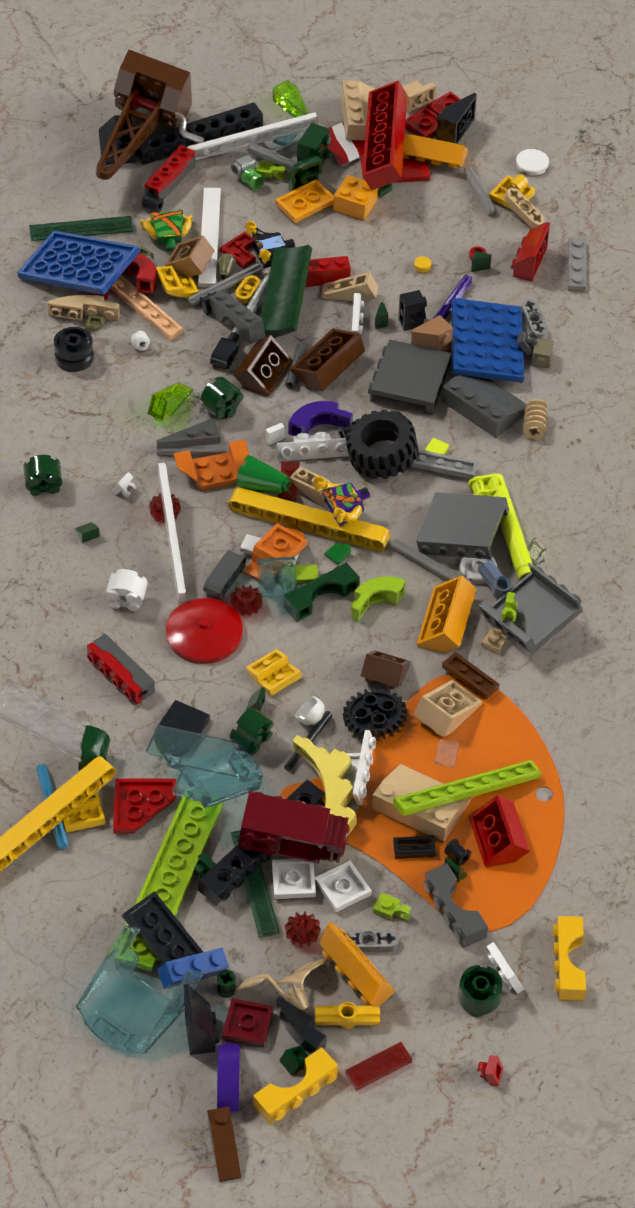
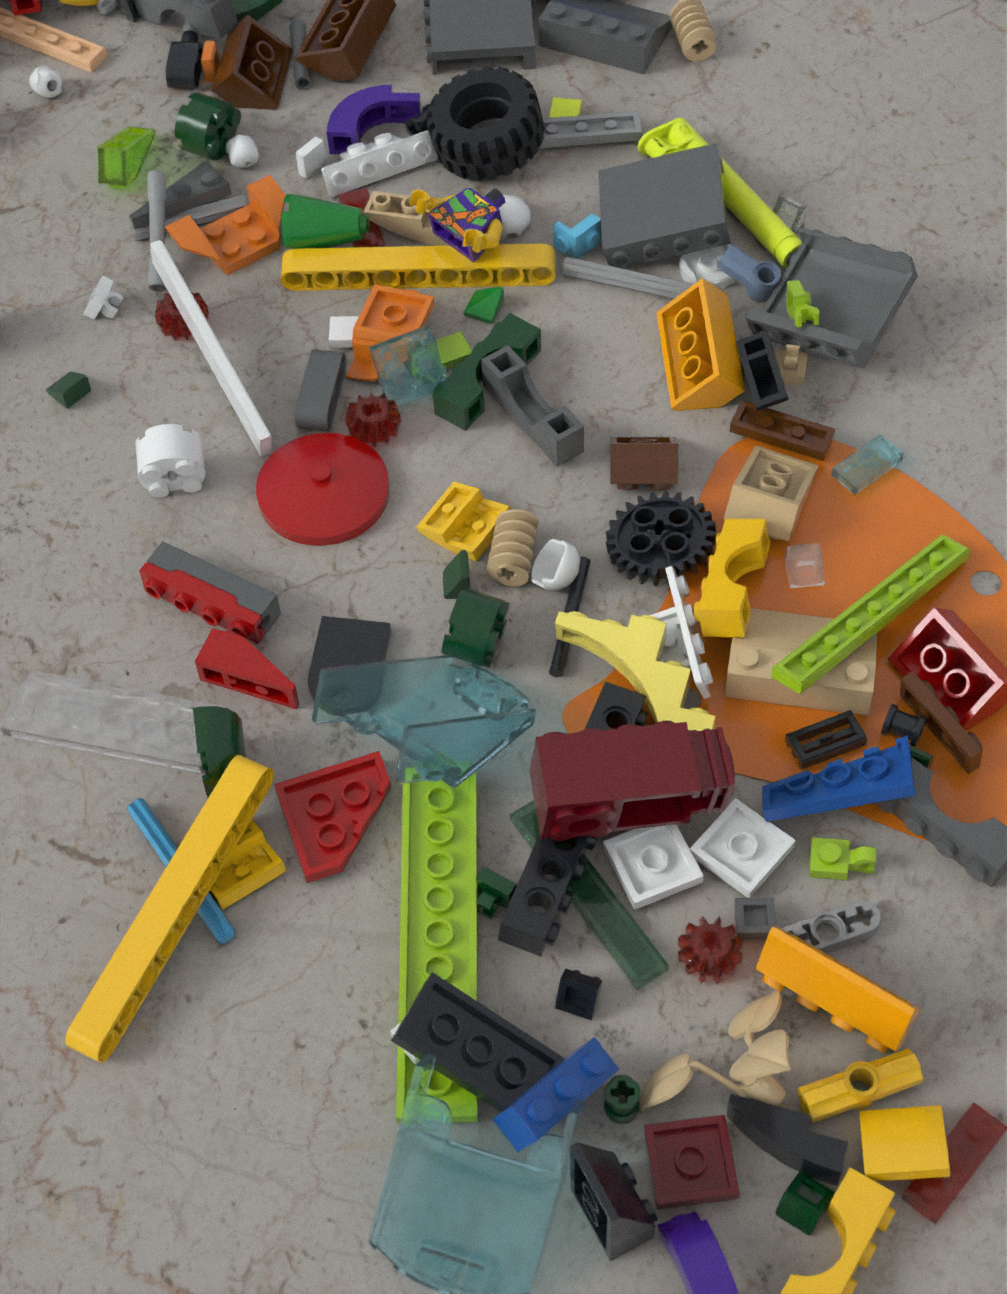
camera: 15 degrees left, 5 degrees up
(120, 712) = (238, 666): none -> red slope
(175, 434) = (156, 196): none -> light grey piece
(226, 928) = (578, 994): none -> black tile
(236, 418) = (242, 151): none -> white piece
(240, 355) = (210, 61): none -> orange tile
(291, 694) = (512, 547): none -> tan piece
(333, 916) = (754, 917): none -> dark grey plate
(340, 632) = (554, 431): none -> dark grey arch
(355, 1047) = (904, 1143): none -> yellow slope
(375, 504) = (514, 216): none -> white hair
(377, 590) = (573, 342): lime arch -> none
(407, 530) = (580, 238): none -> medium azure bracket
(412, 733) = (723, 603): none -> yellow arch
(412, 871) = (841, 785): none -> blue wing
(473, 638) = (762, 370): none -> black slope
(479, 856) = (942, 722): none -> reddish brown plate
(510, 709) = (867, 464): none -> clear light blue plate

